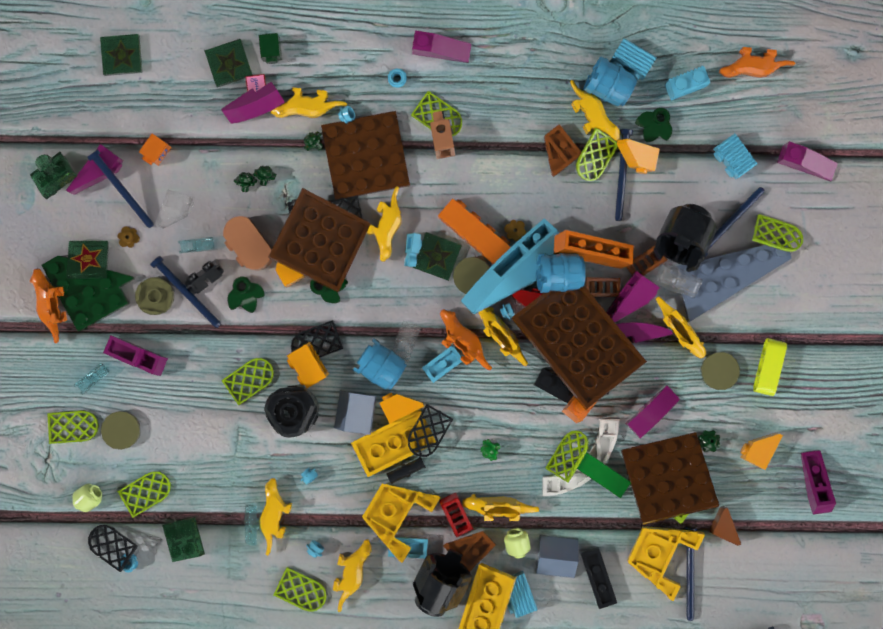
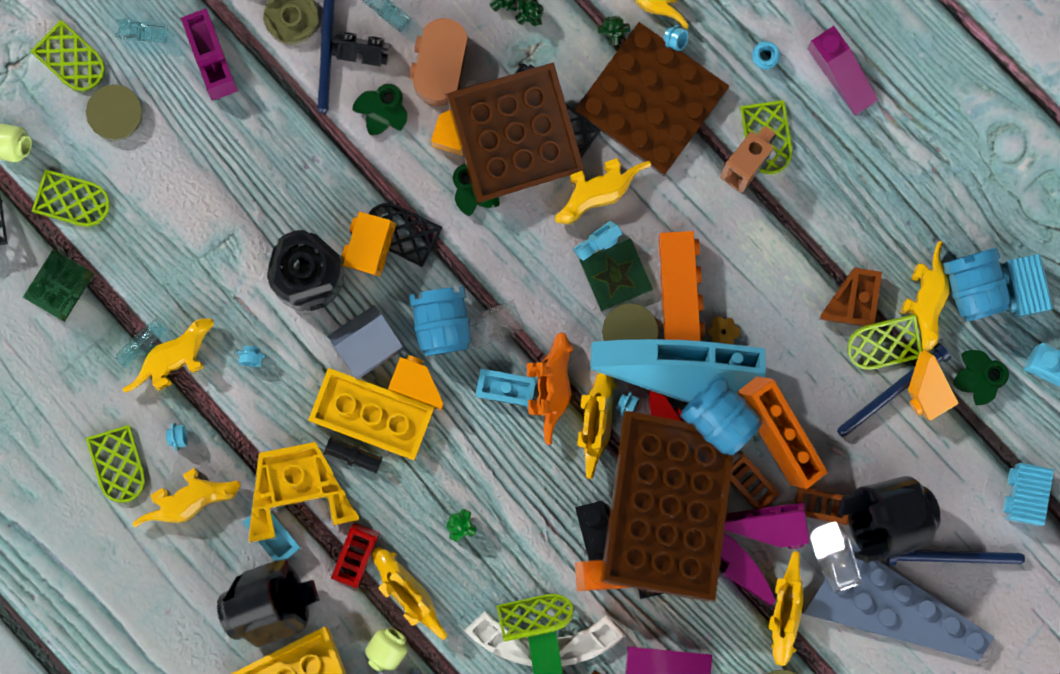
camera: 45 degrees right, 5 degrees down
(239, 402) = (264, 190): lime window -> none
(433, 434) = (449, 431): black window -> none
(472, 547) = (336, 606): dark orange wing -> none
(782, 224) = (978, 632): lime window -> none

